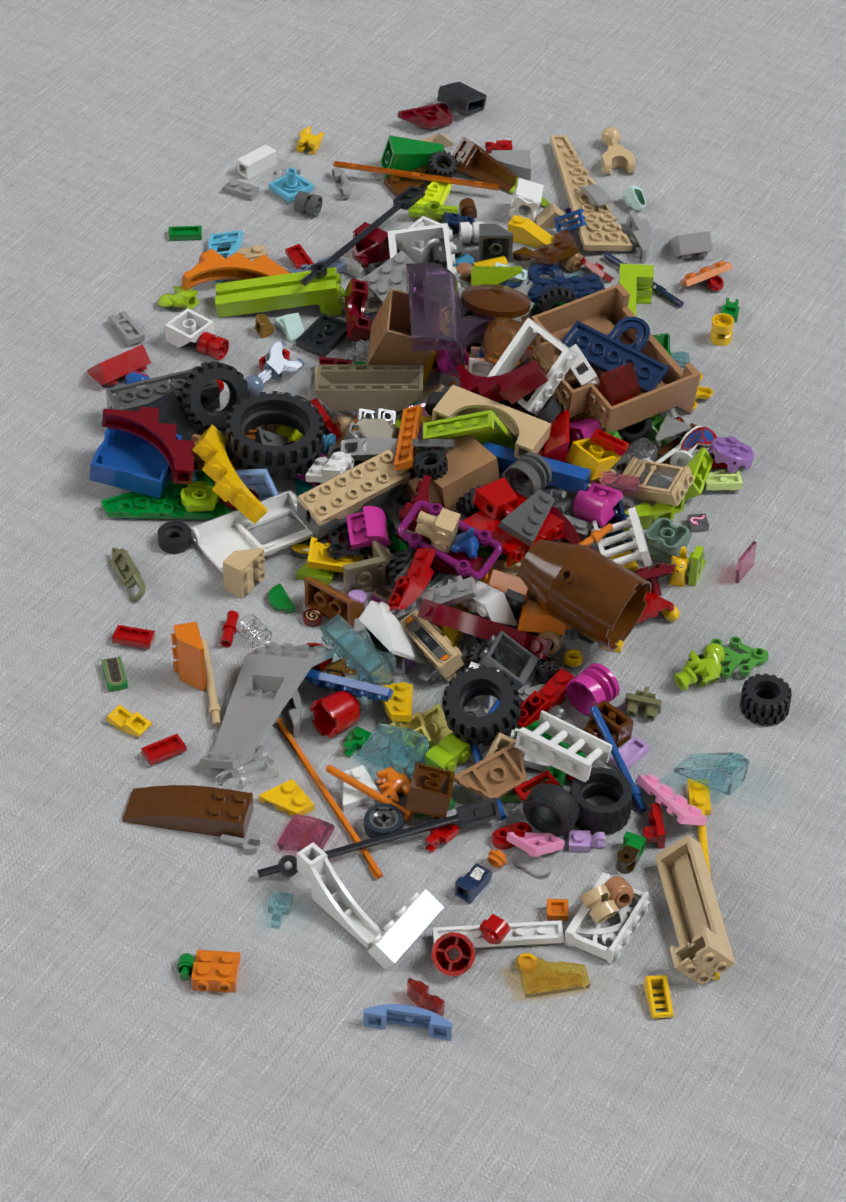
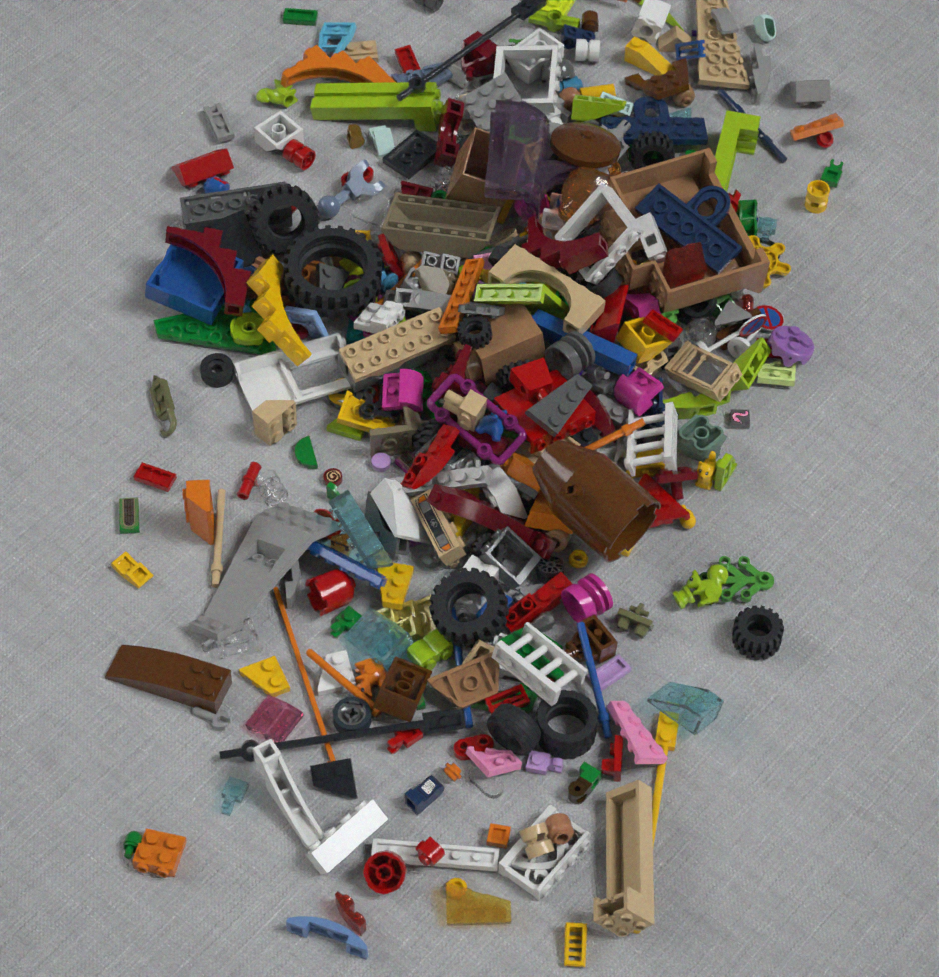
camera: 10 degrees right, 10 degrees up
(163, 749) = (158, 606): red plate -> none
(315, 628) = (331, 490): none -> green tile
(331, 601) = (354, 465): dark orange slope -> none
(380, 878) = (335, 777): none -> black wing
(494, 242) = (606, 67): dark grey slope -> none
(597, 269) = (706, 109): plate -> none
(625, 483) = (666, 369): clear pink slope -> none
(745, 562) = (775, 473): clear pink piece -> none

